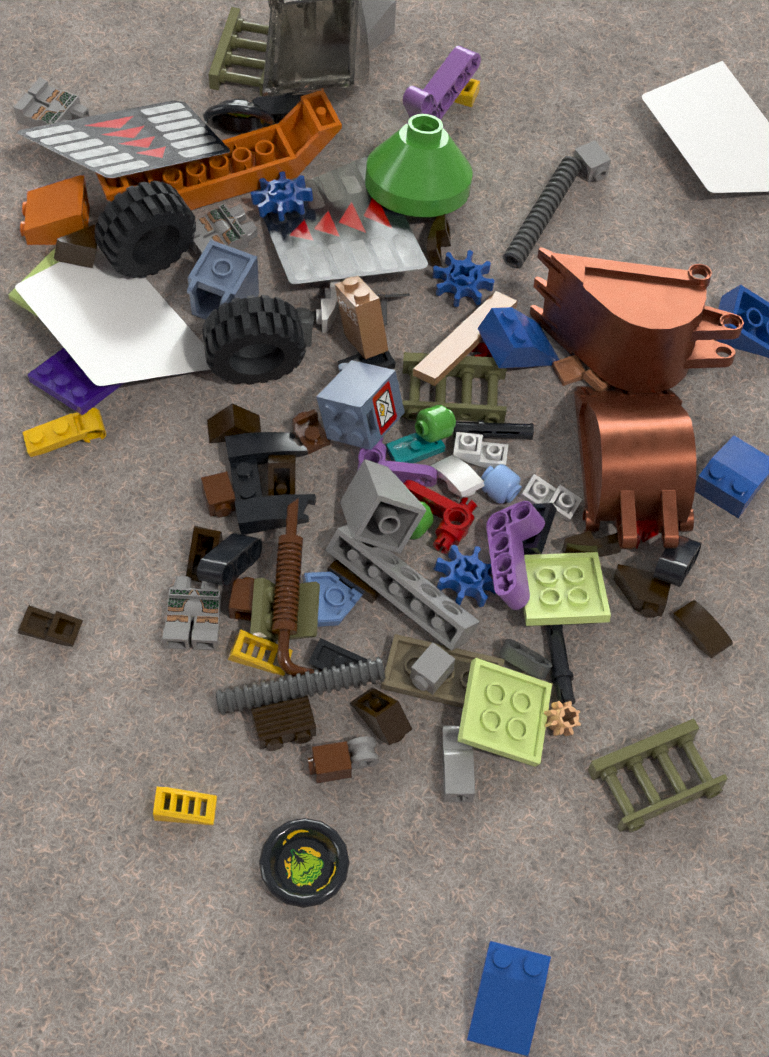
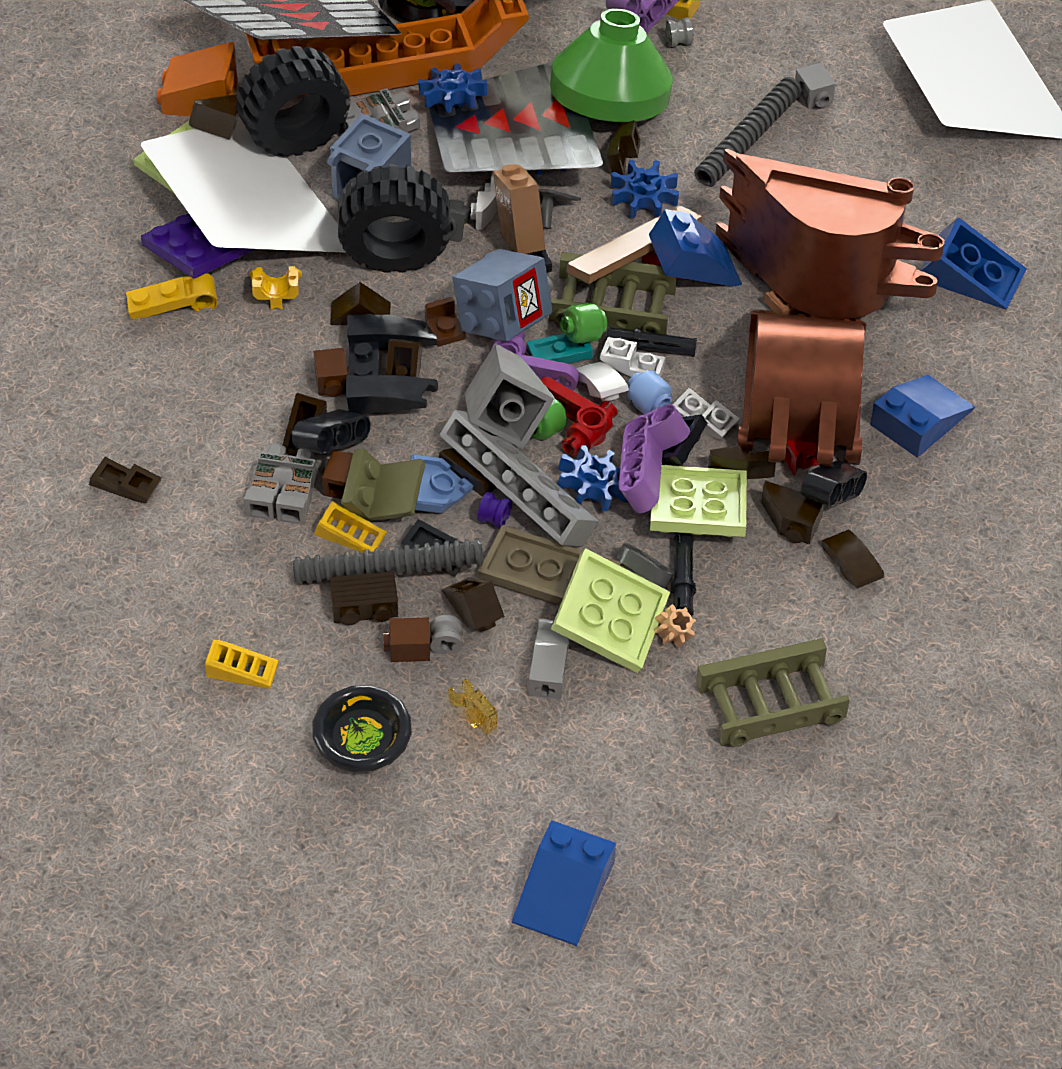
camera: 10 degrees right, 10 degrees down
(156, 413) = (274, 288): none -> yellow piece
(287, 591) = (389, 463): reddish brown piece -> none
(385, 619) = (494, 510): none -> dark purple wheel
(405, 828) = (479, 710): none -> clear yellow plate
(432, 669) = (536, 558): light grey brick -> none
(467, 119) = (679, 32): none -> light grey wheel
(569, 370) = (749, 291): nougat tile -> none

